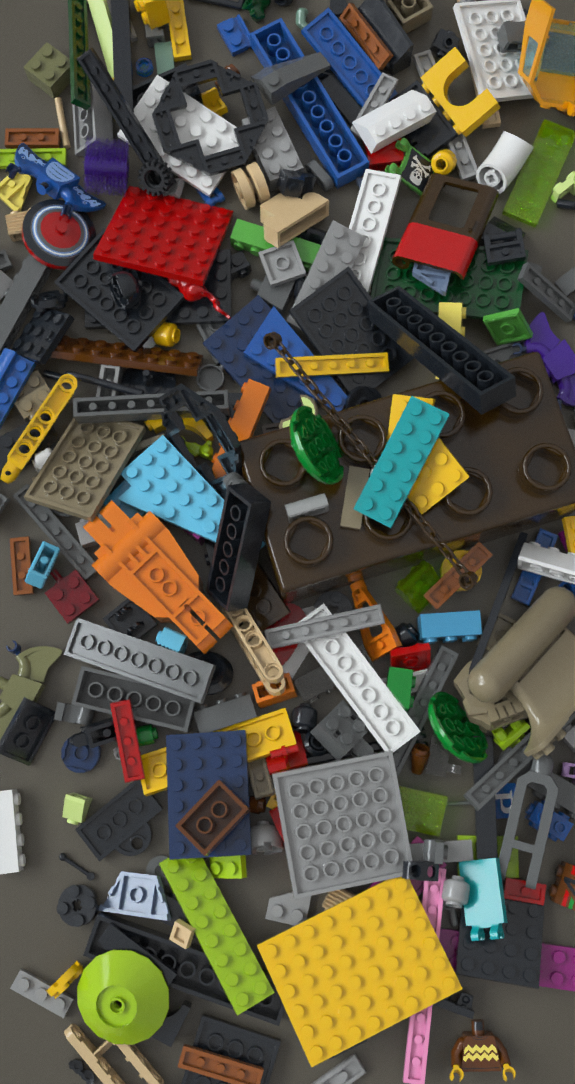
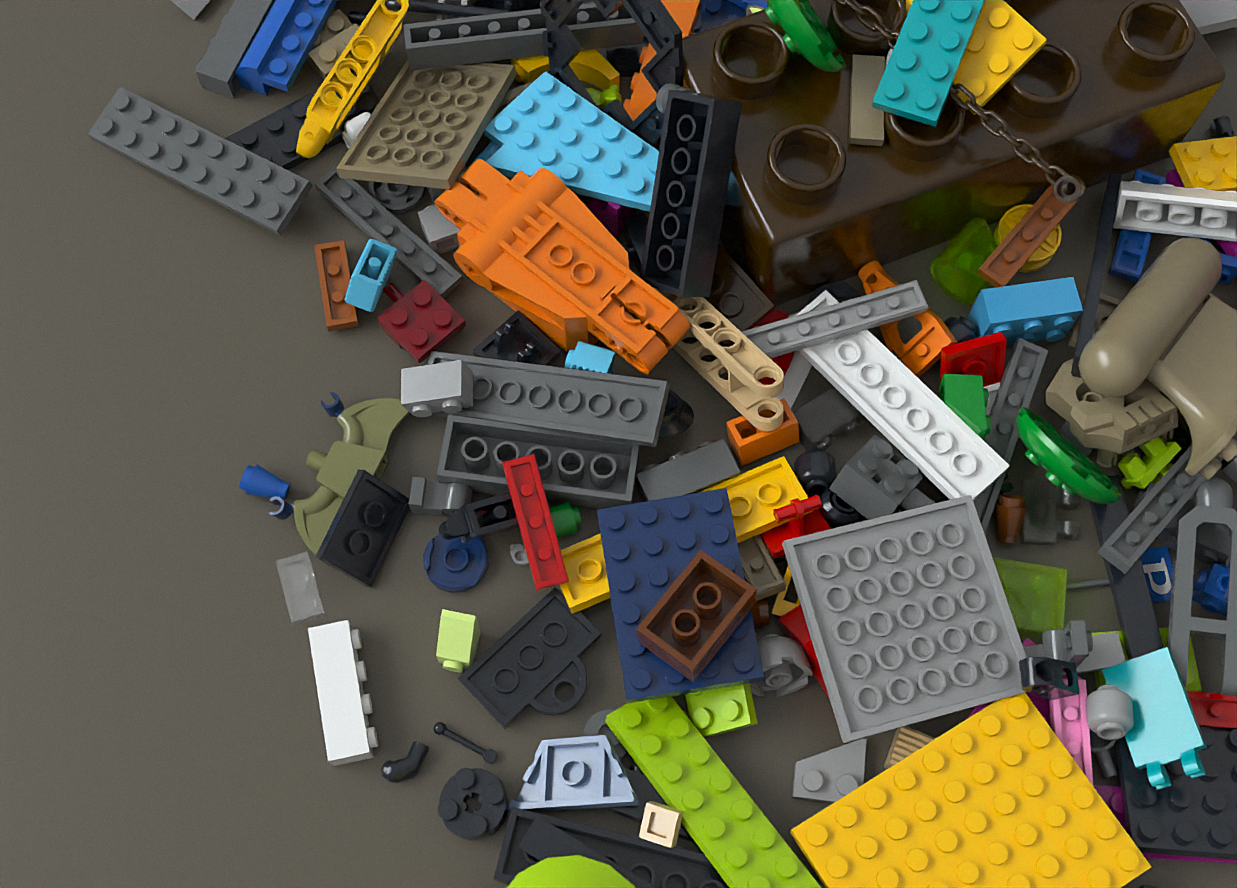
camera: 10 degrees left, 10 degrees down
(41, 879) = (407, 767): none -> black arm
(76, 646) = (437, 388): none -> light grey brick
(307, 507) = (810, 109): light grey brick -> none

